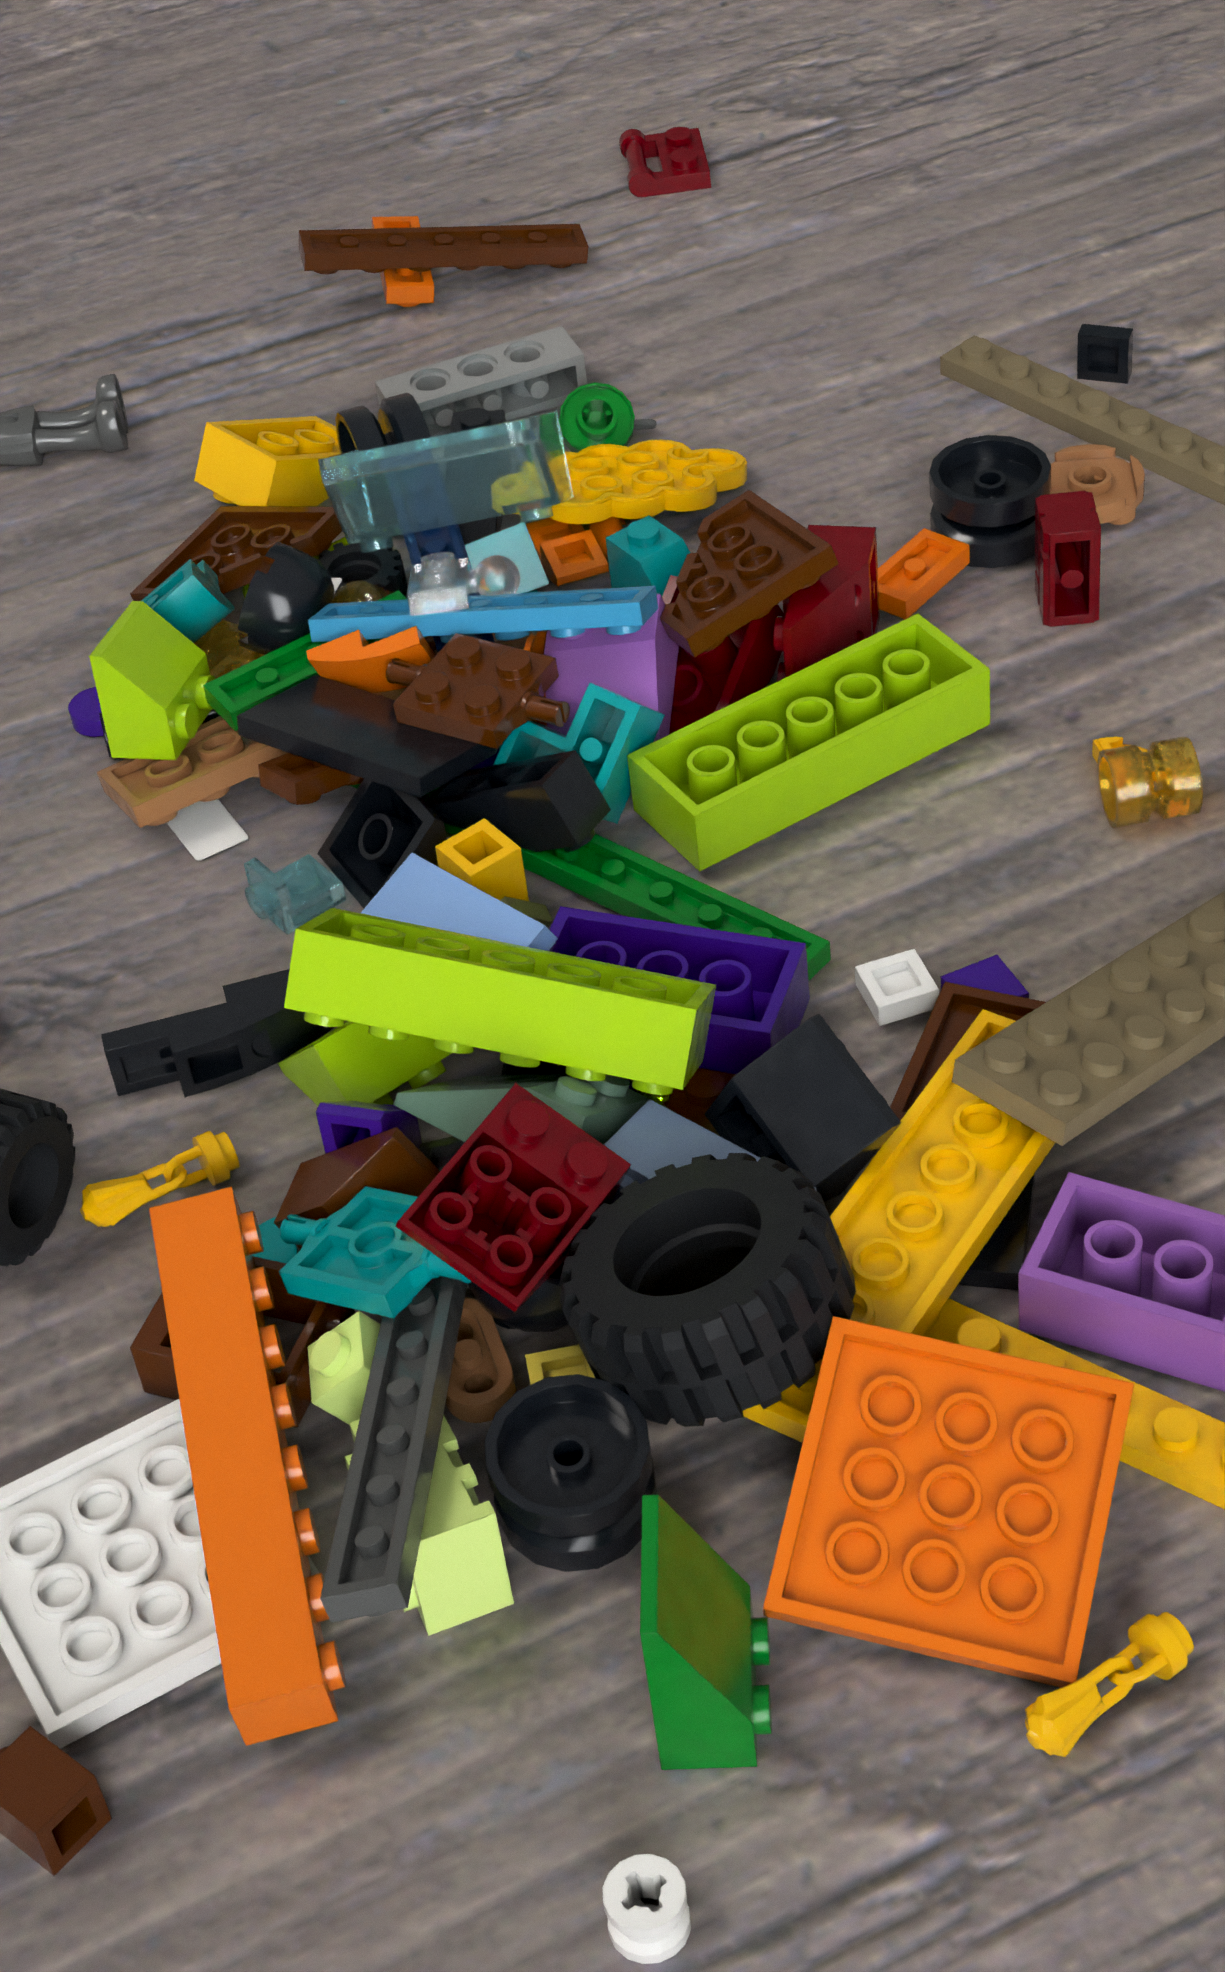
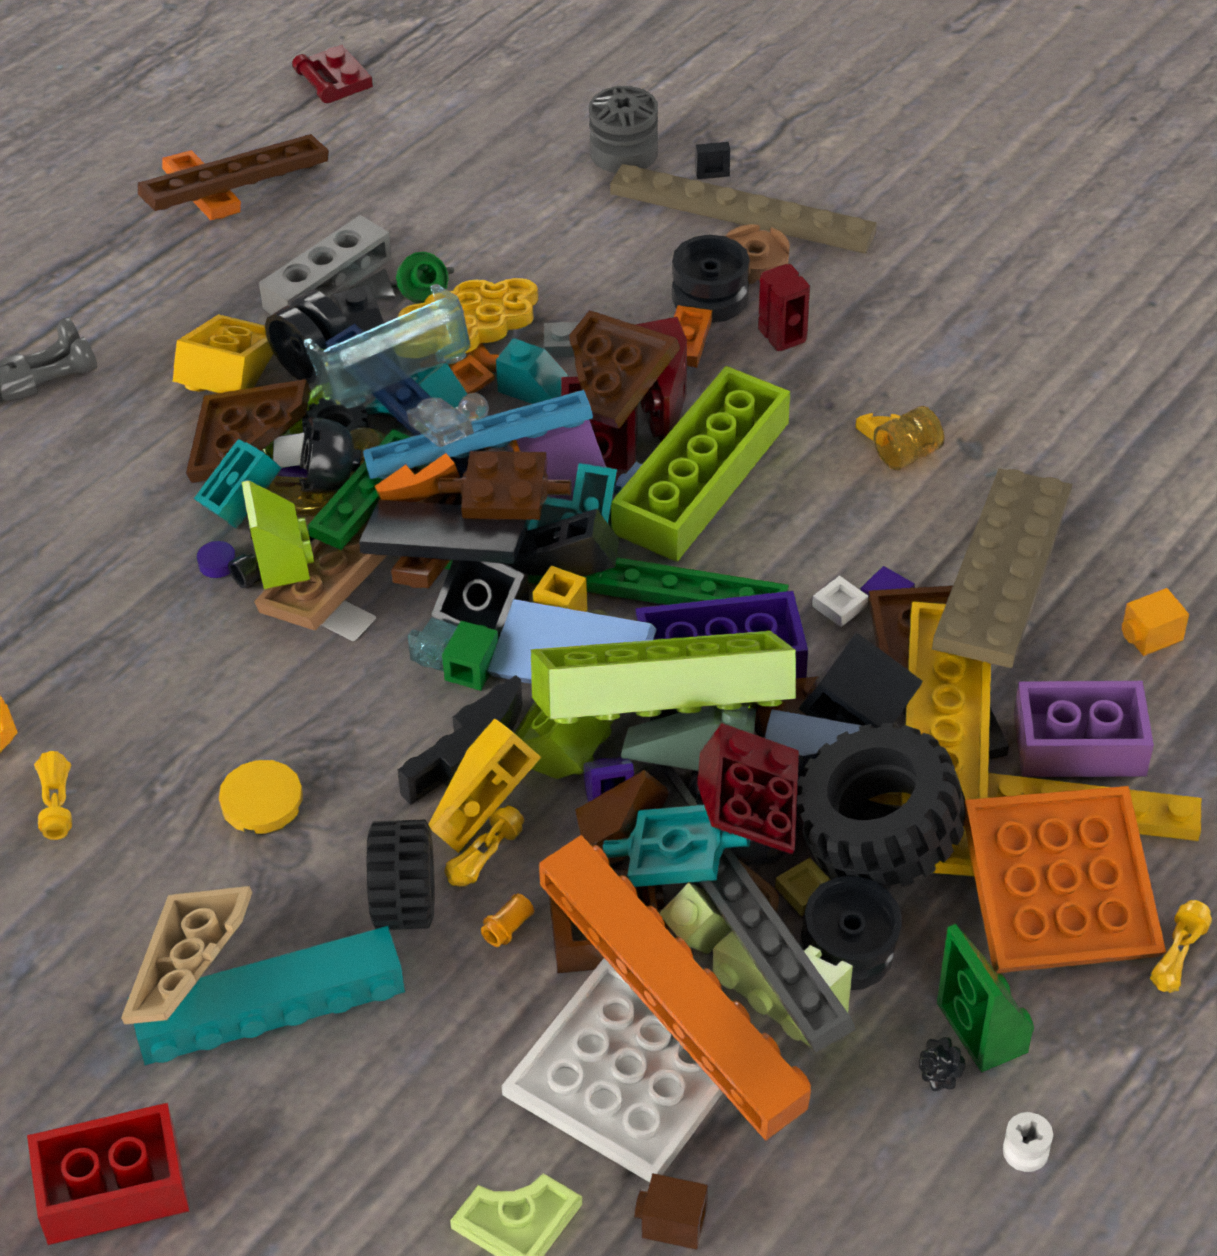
camera: 30 degrees left, 5 degrees up
(117, 1291) = (498, 928): none -> light orange pin
(196, 1089) = (481, 783): none -> yellow slope
(312, 896) = (469, 655): none -> green brick
(589, 1729) = (941, 1064): none -> black plant
(996, 286) = (623, 128): none -> dark grey wheel

